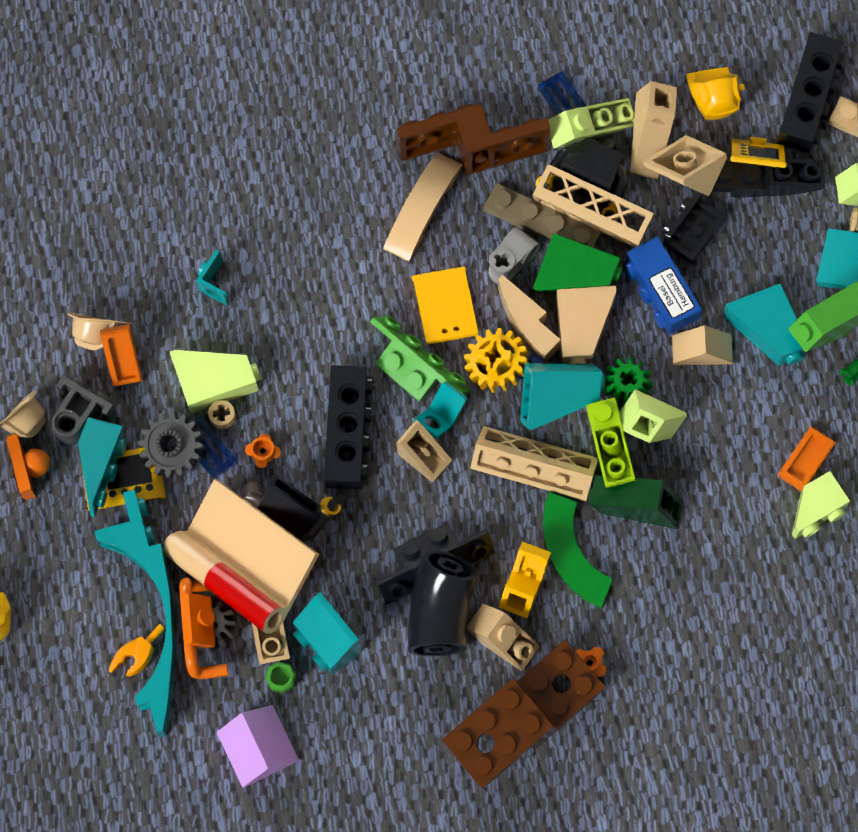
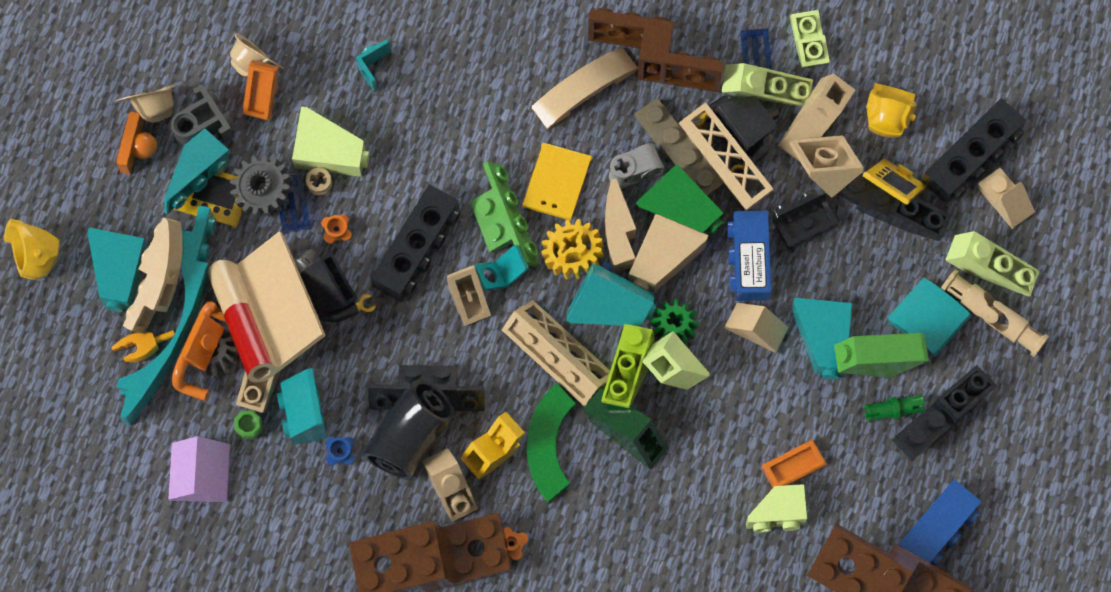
camera: 25 degrees right, 0 degrees up
(72, 590) = (116, 266): none -> teal slope
(119, 566) = (162, 267): none -> tan slope
(381, 649) = (333, 445): none -> blue plate
(604, 63) = (809, 38): none -> yellowish green slope

